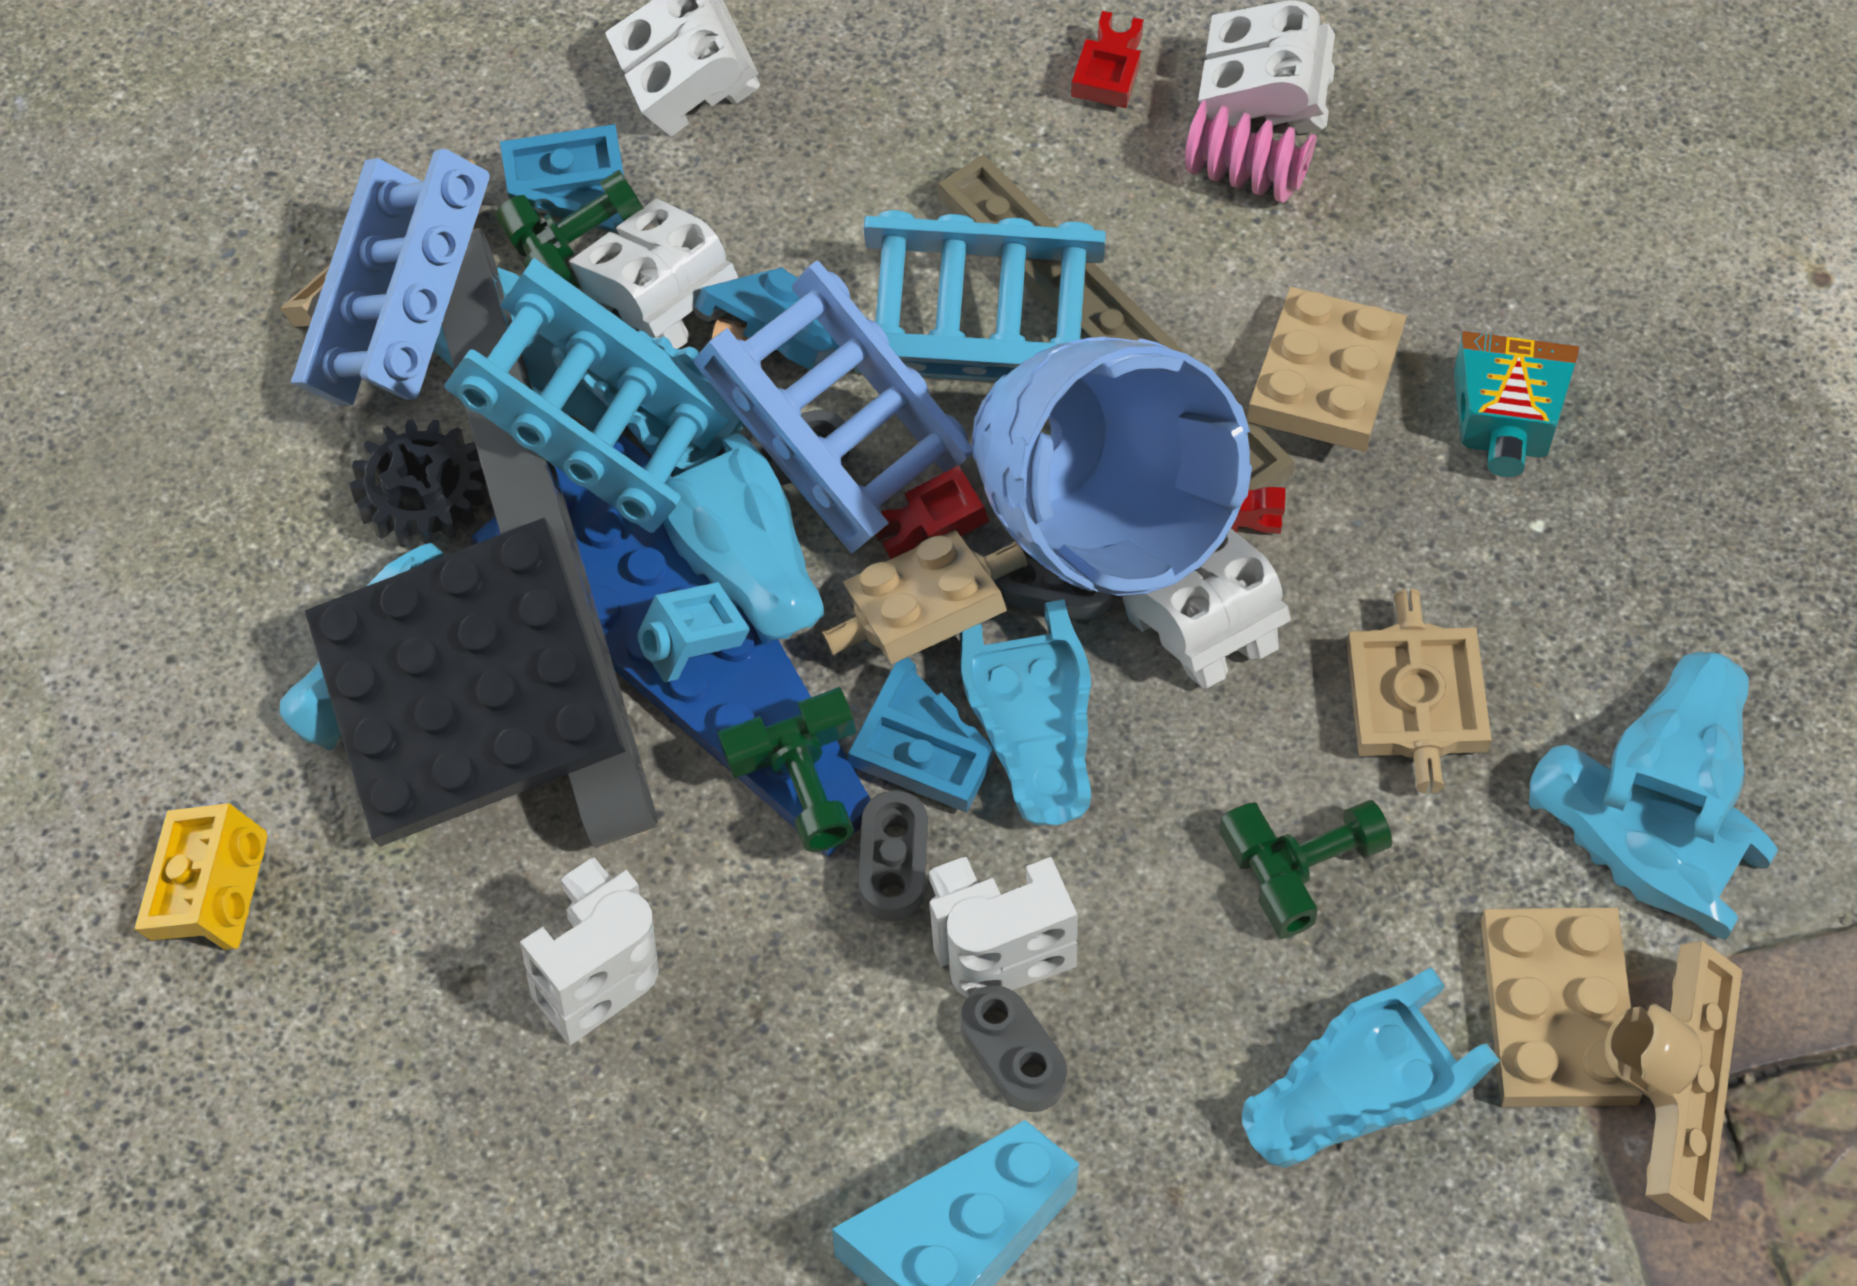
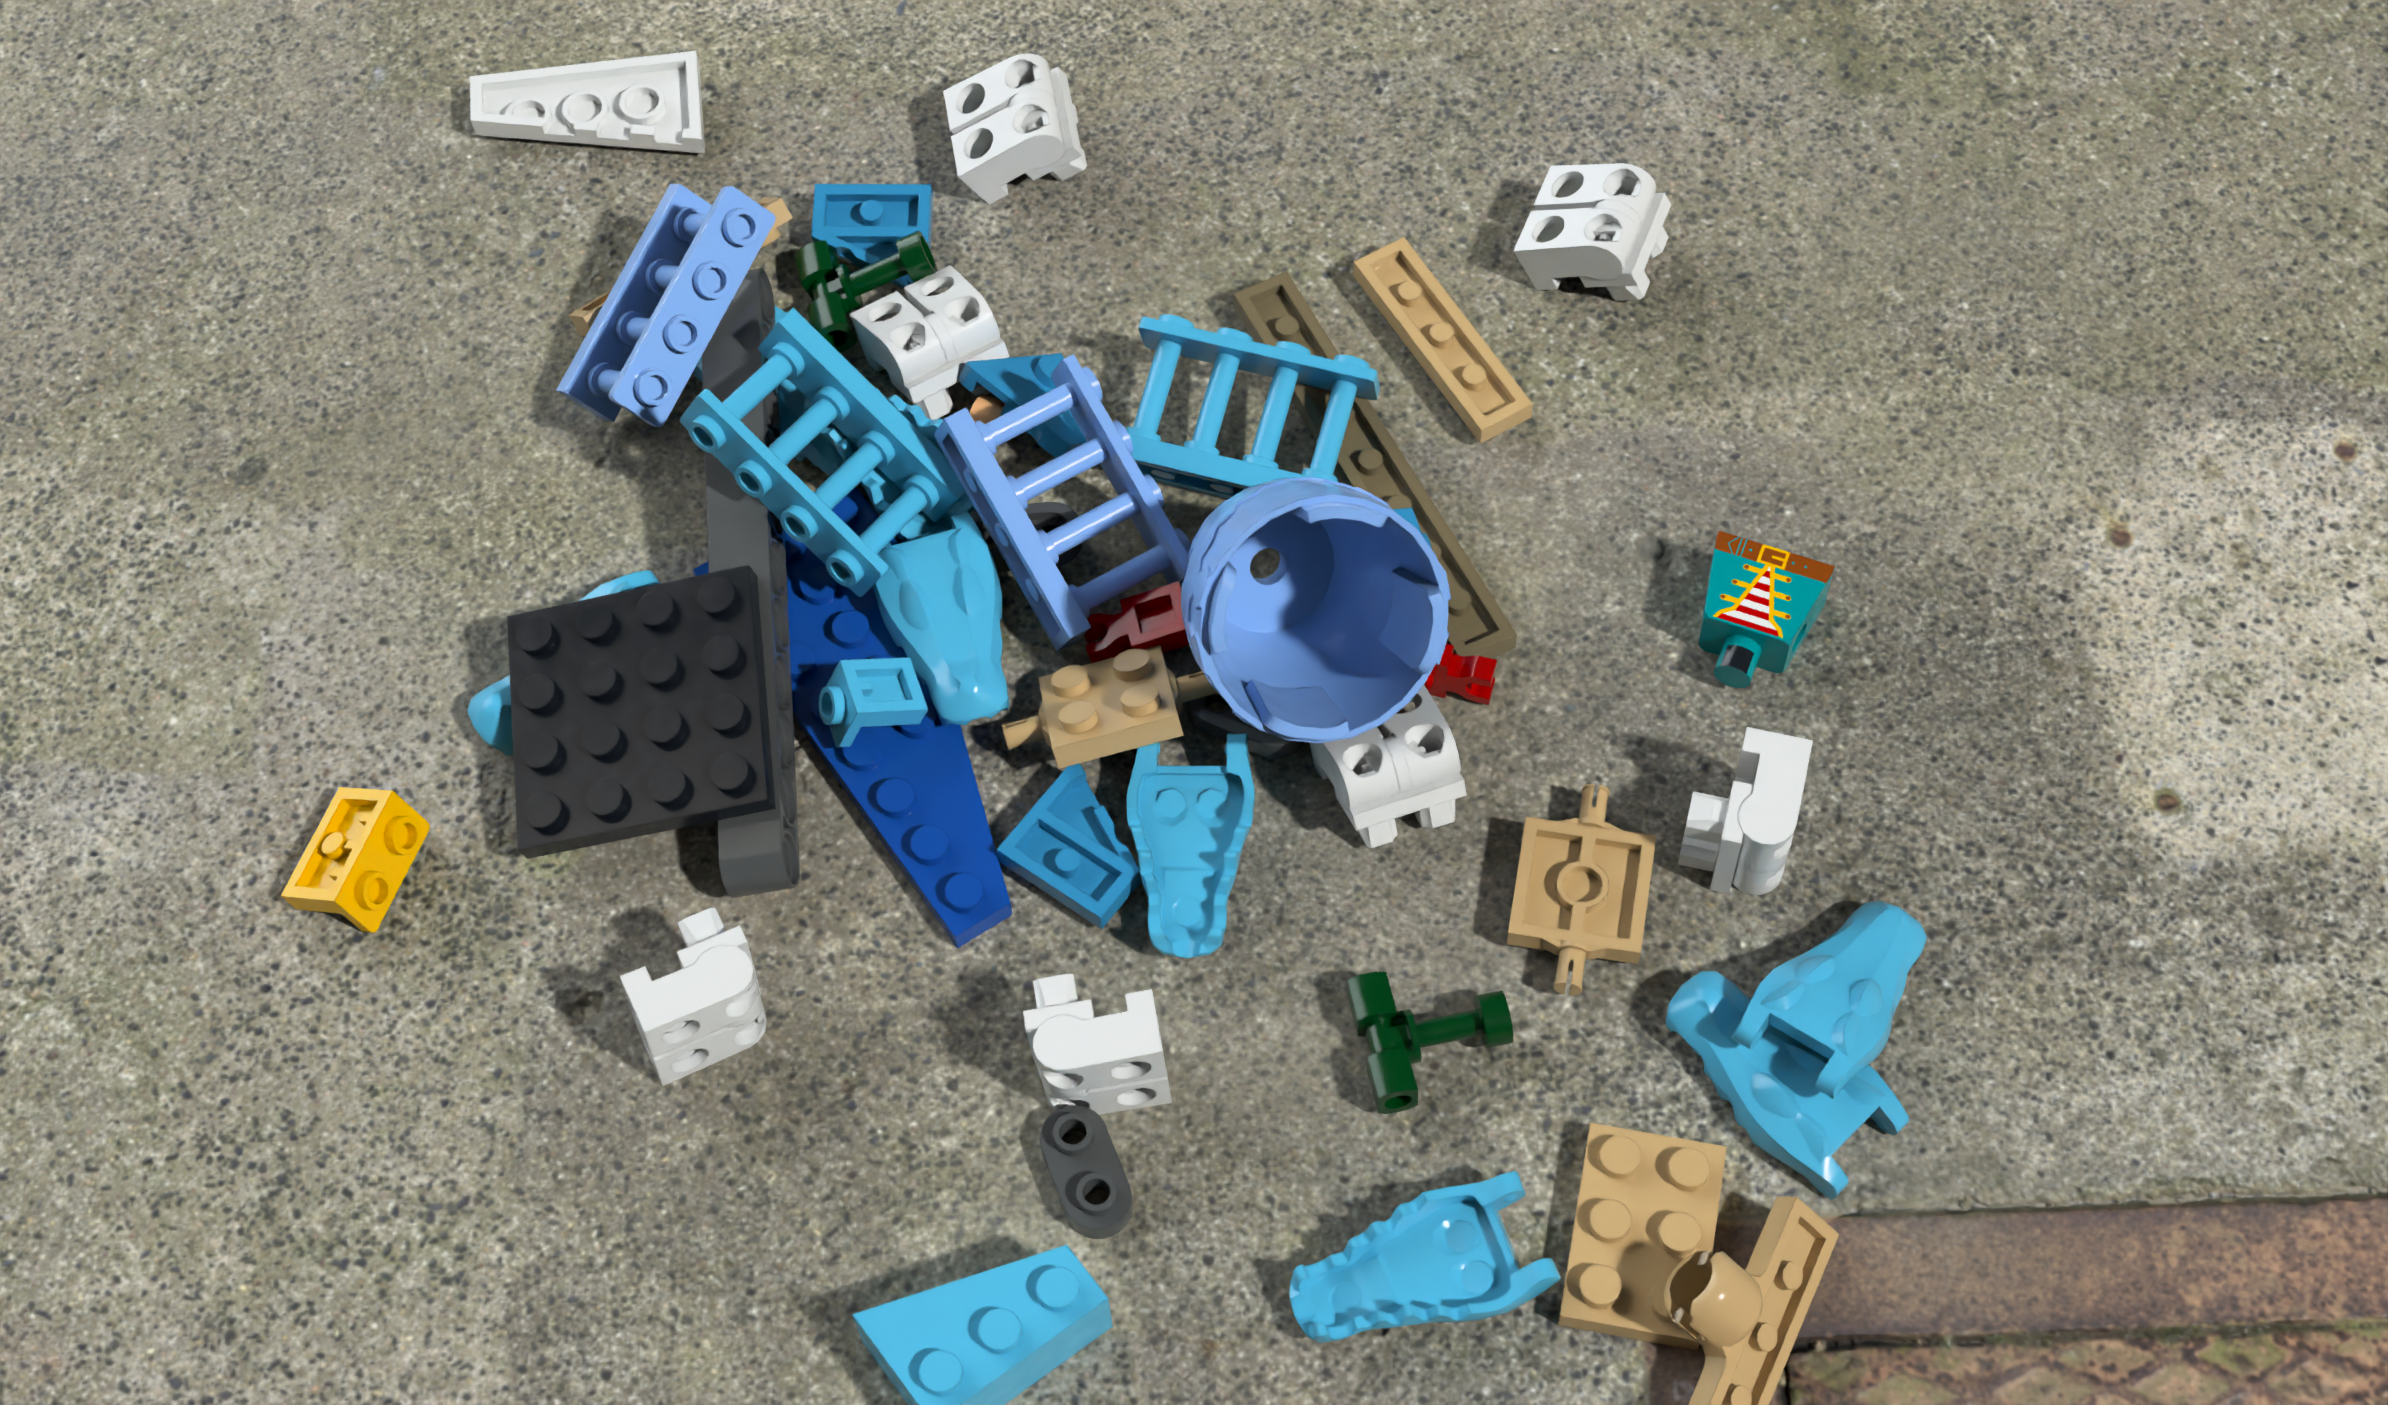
camera: 15 degrees right, 0 degrees up
(264, 95) = (606, 103): none -> white wing
(413, 483) = (626, 521): black gear -> none
(793, 749) = (941, 835): dark green bar -> none
(893, 859) = (1015, 962): dark grey plate -> none
(1109, 65) = (1439, 201): red plate -> none
(1148, 196) = (1442, 340): none -> tan plate
(1247, 153) = (1550, 315): bright pink piece -> none
(1326, 369) = (1575, 546): tan plate -> none
(1568, 591) = (1753, 830): none -> white hips

